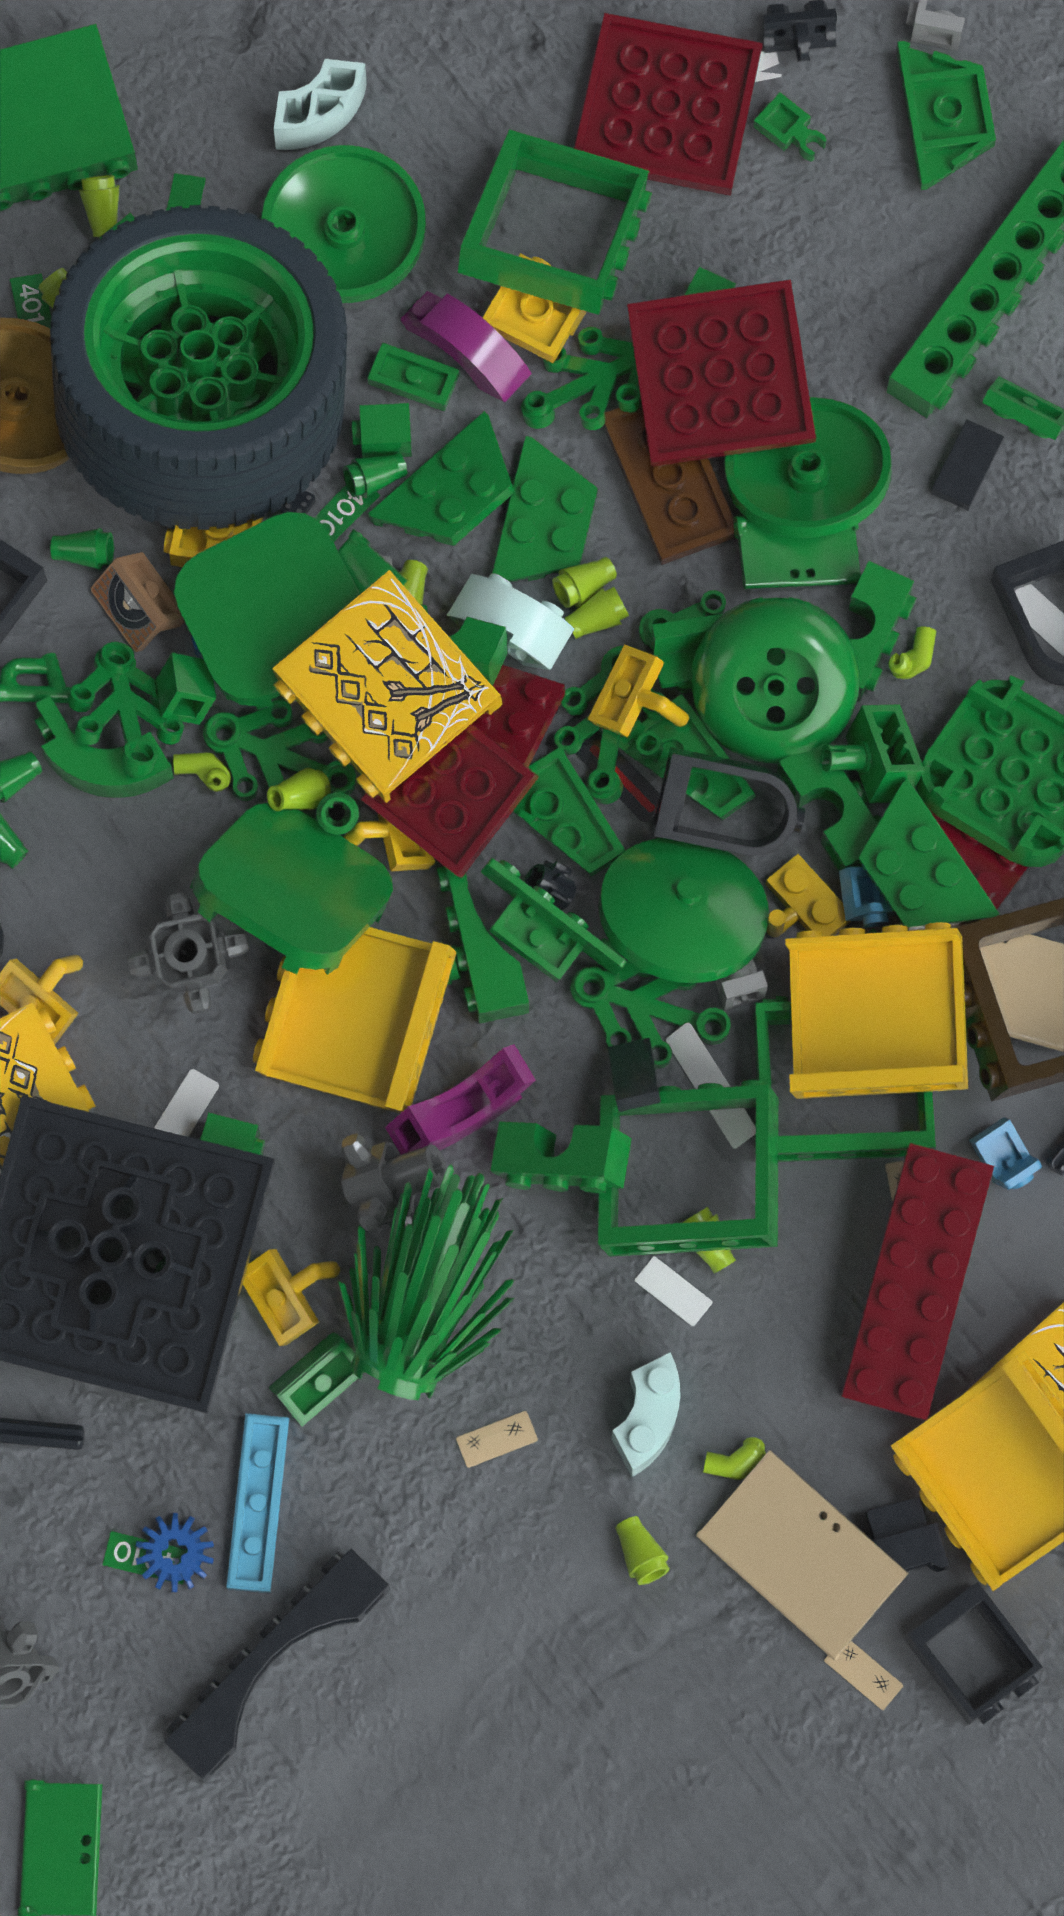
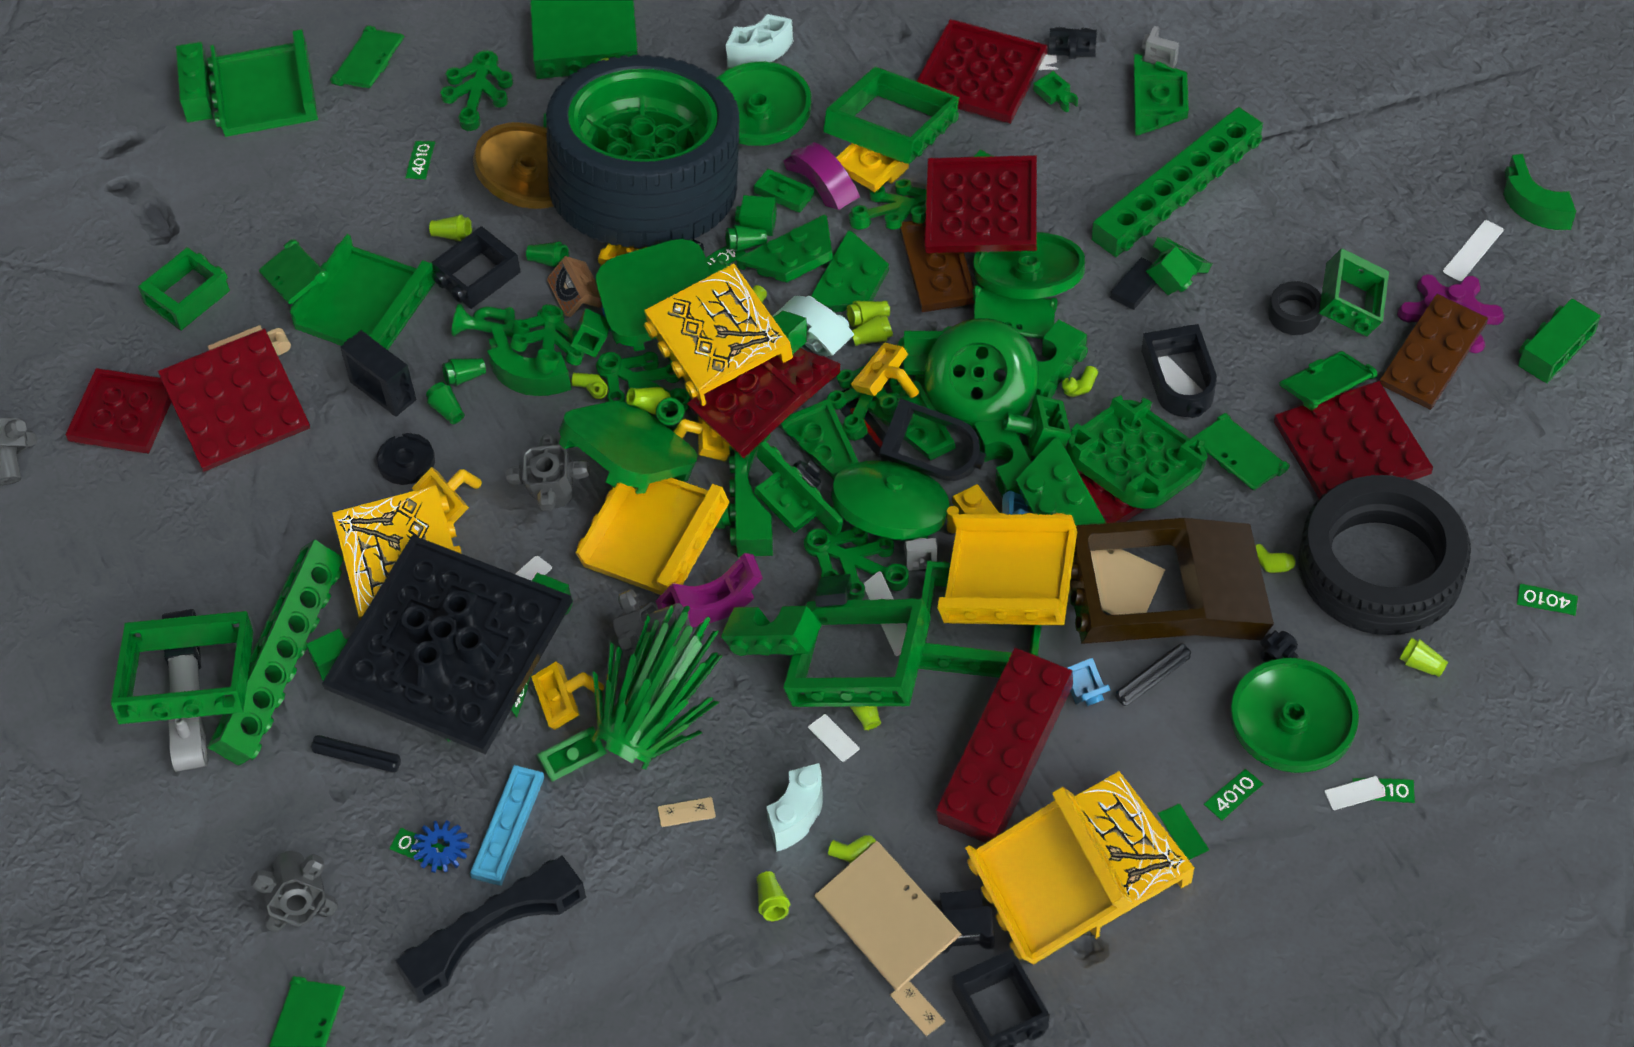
camera: 15 degrees right, 20 degrees down
(1017, 443) = (1172, 271): none -> green brick

